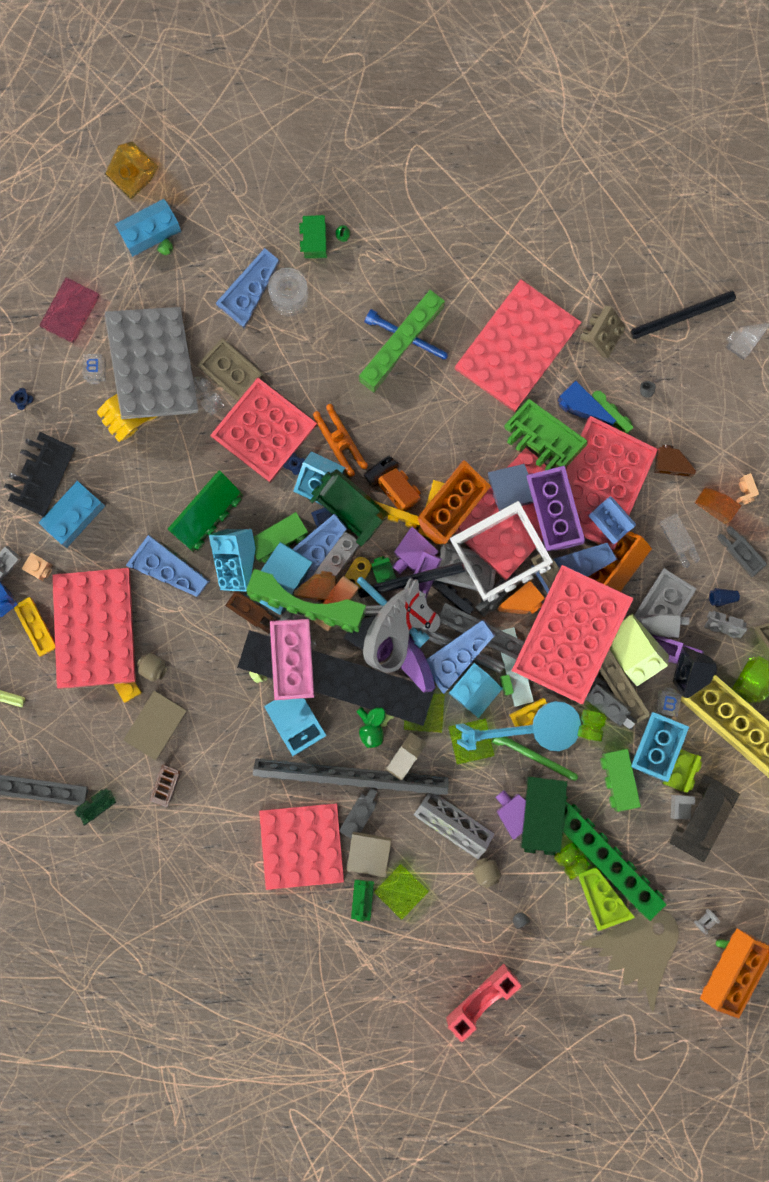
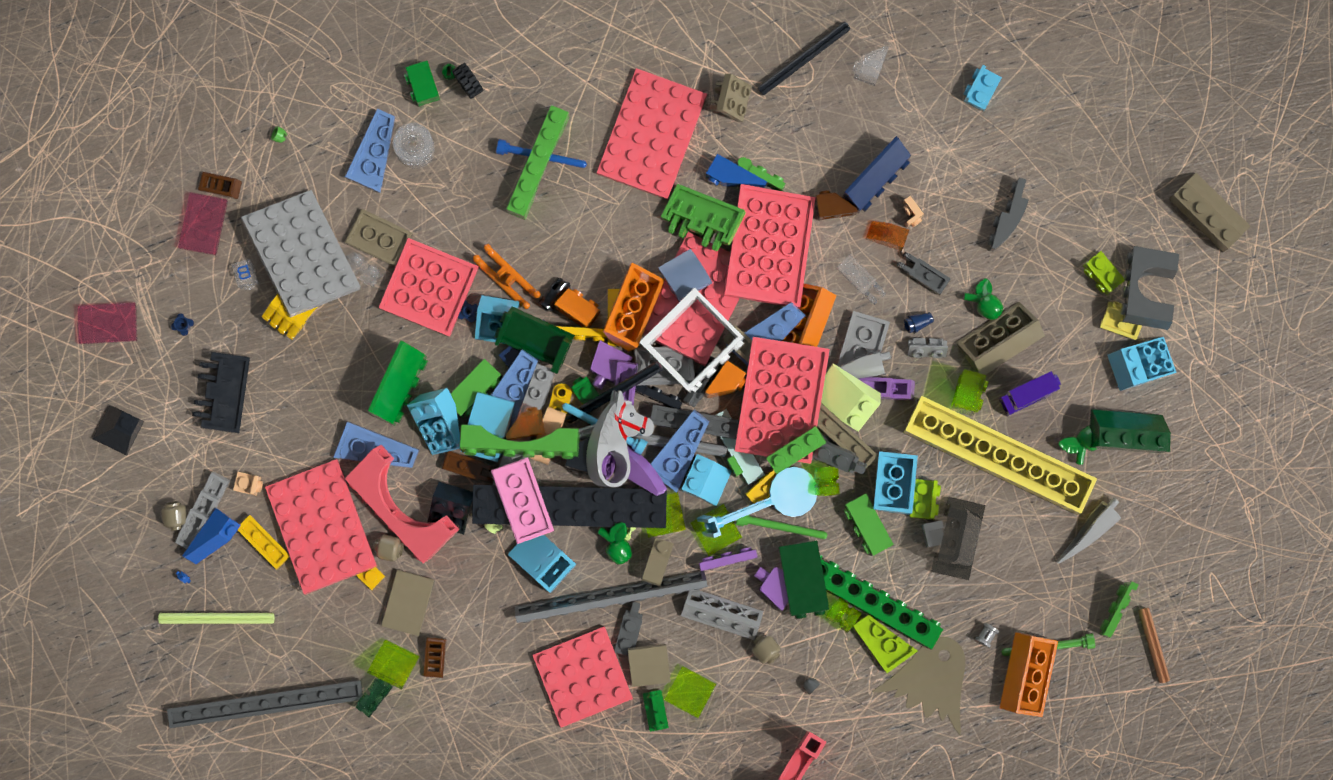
camera: 20 degrees left, 0 degrees up
(71, 514) = (265, 422): dark azure slope -> none
(105, 286) = (231, 189): none -> reddish brown slope
(122, 781) = (393, 664): none -> clear neon green tile
(130, 169) = (222, 67): clear yellow slope -> none
(148, 227) = (255, 119): dark azure slope -> none
(153, 602) = (370, 482): none -> coral arch
(222, 646) = (454, 503): none -> black slope
(357, 245) = (467, 80): none -> black tyre
(474, 773) = (727, 559): none -> medium lavender plate
(555, 509) = (732, 285): medium lavender slope -> none
(572, 687) = (796, 449): none -> bright green brick
(612, 520) = (789, 279): medium blue bracket -> none
(647, 389) = (789, 141): dark grey hinge -> none
(668, 703) = (893, 438): clear brick -> none
(693, 672) = (907, 402): black slope -> none
(724, 444) = (877, 175): none -> dark blue slope

